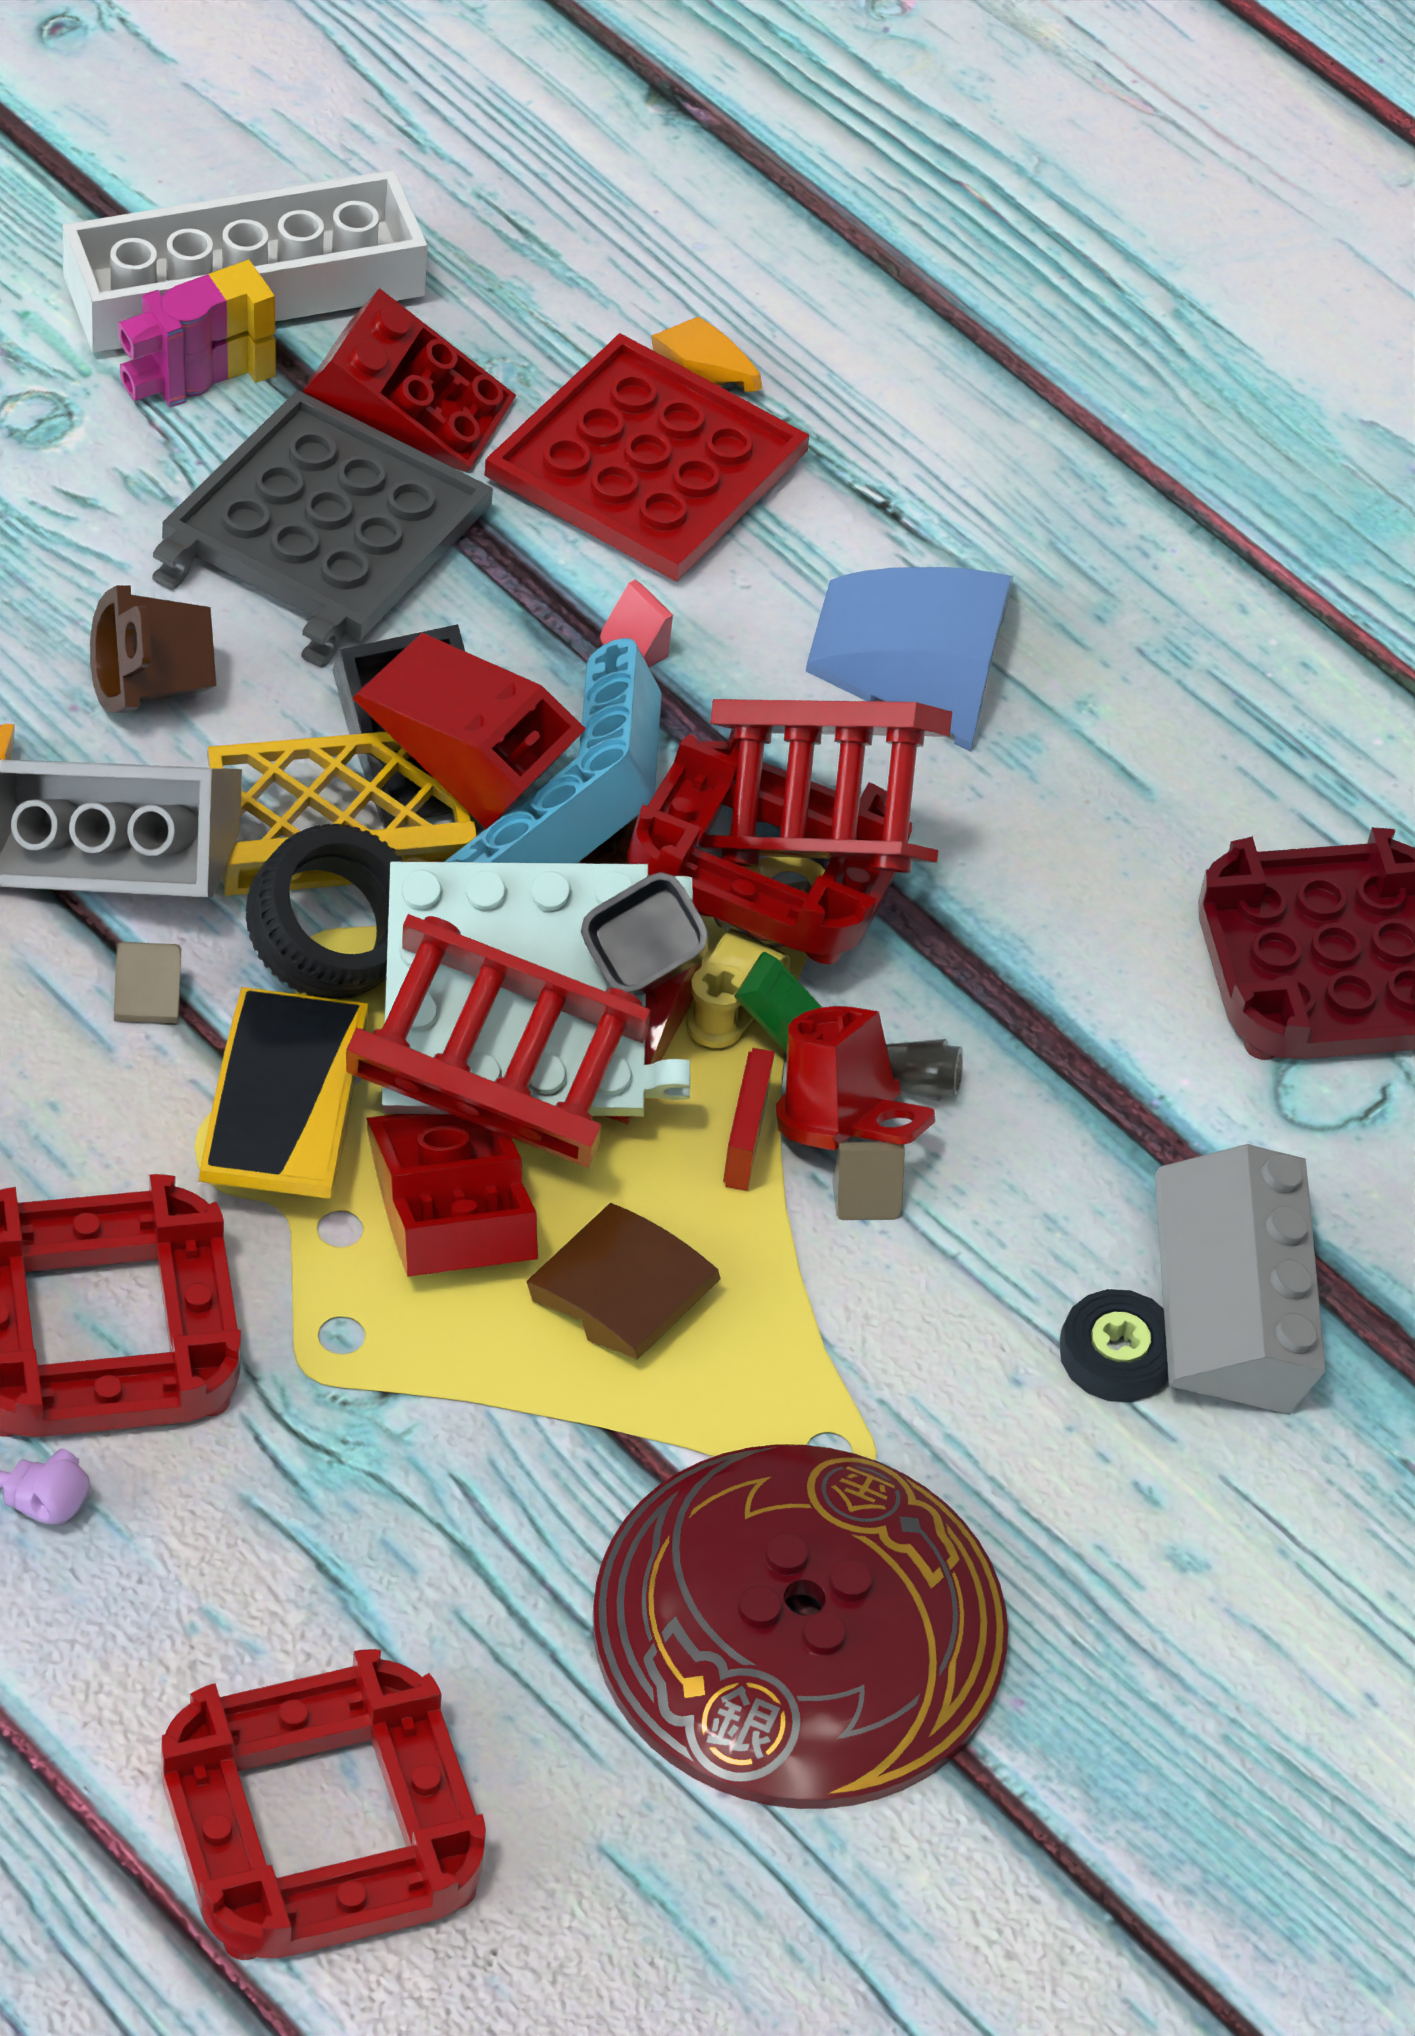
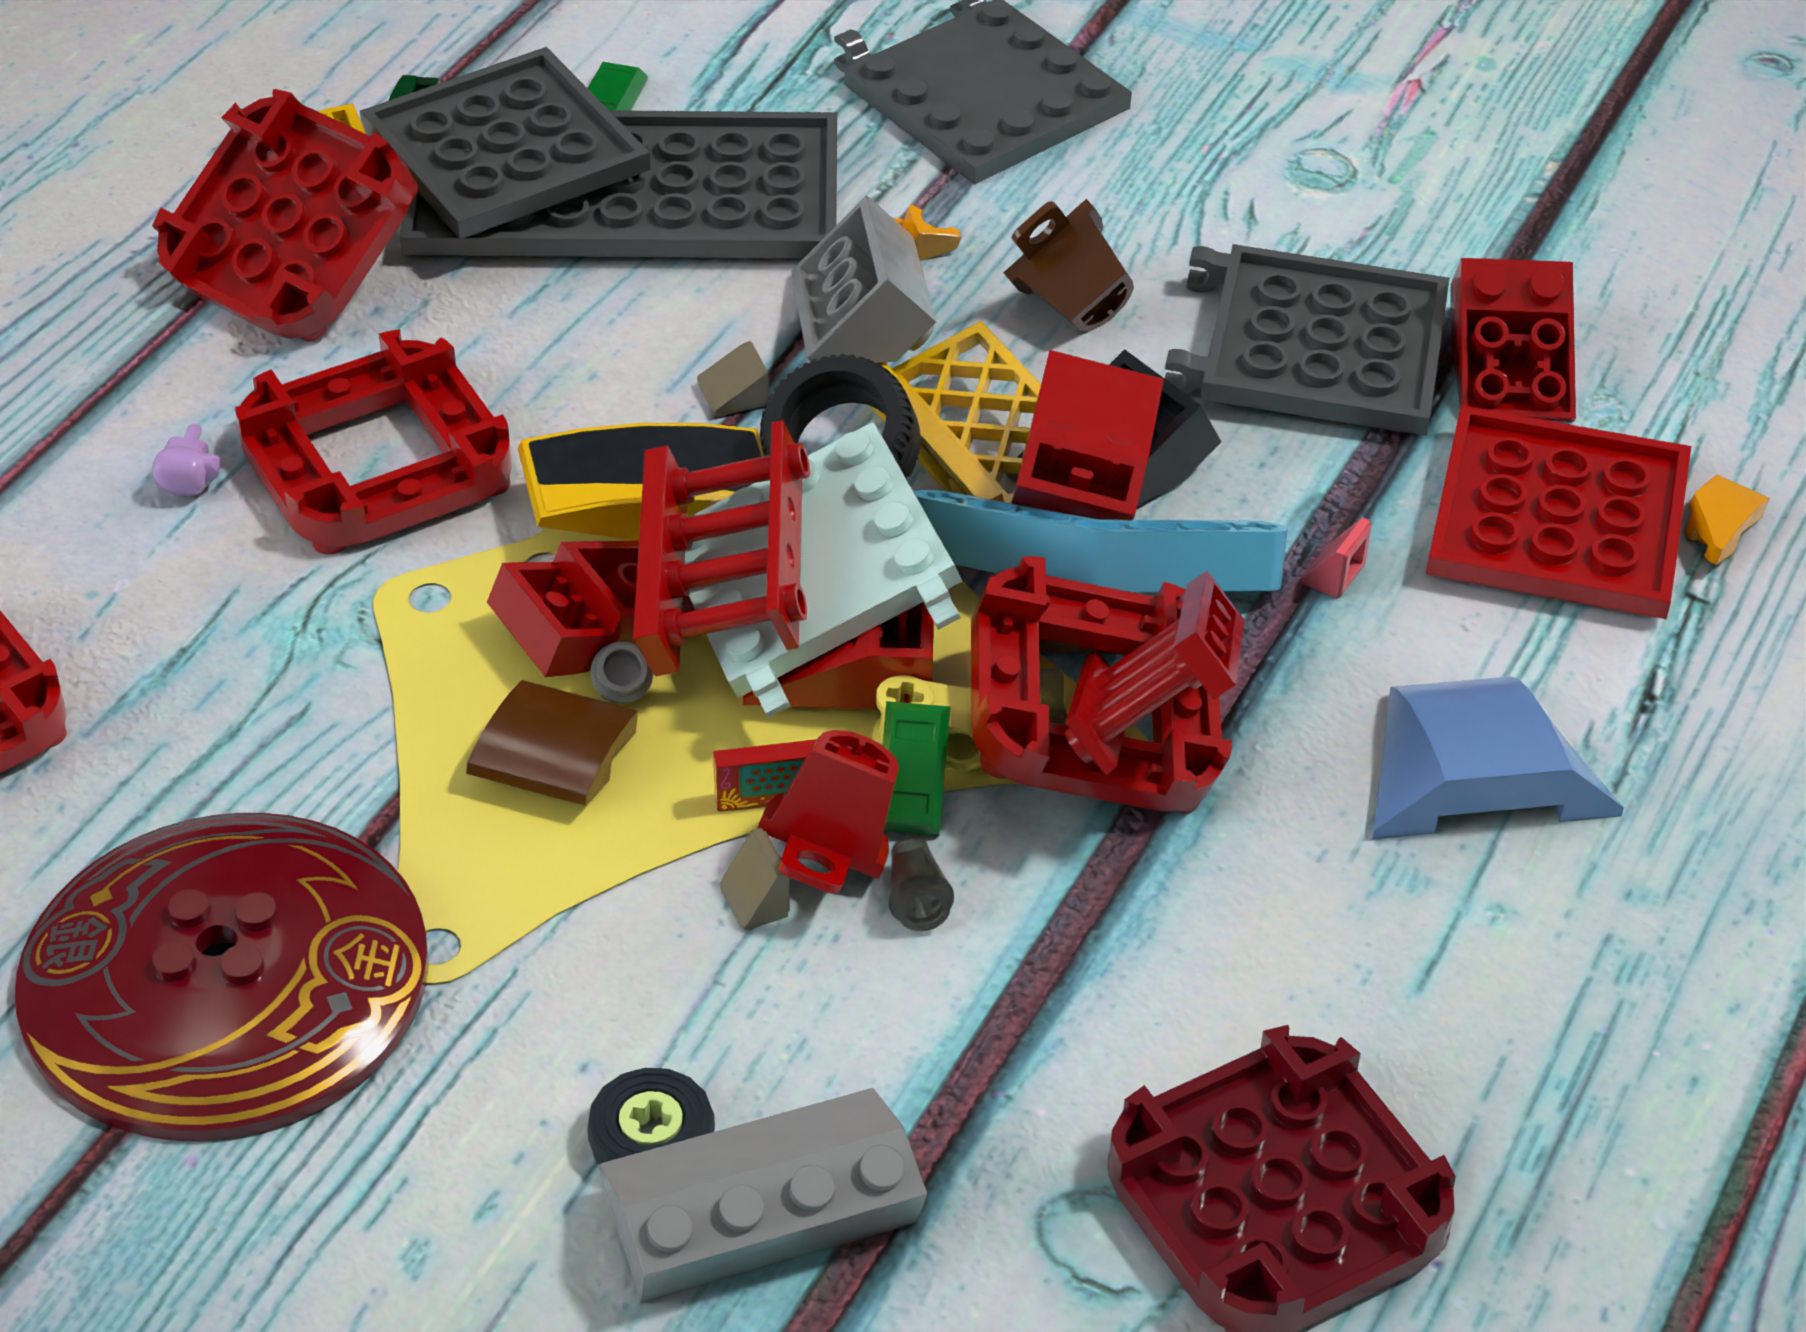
camera: 75 degrees right, 5 degrees down
(200, 335) = (1450, 196): dark pink hips -> none
(311, 243) = (1570, 205): white brick -> none
(556, 1197) = (621, 673): none -> light grey plate
(645, 934) = (862, 584): piece -> none

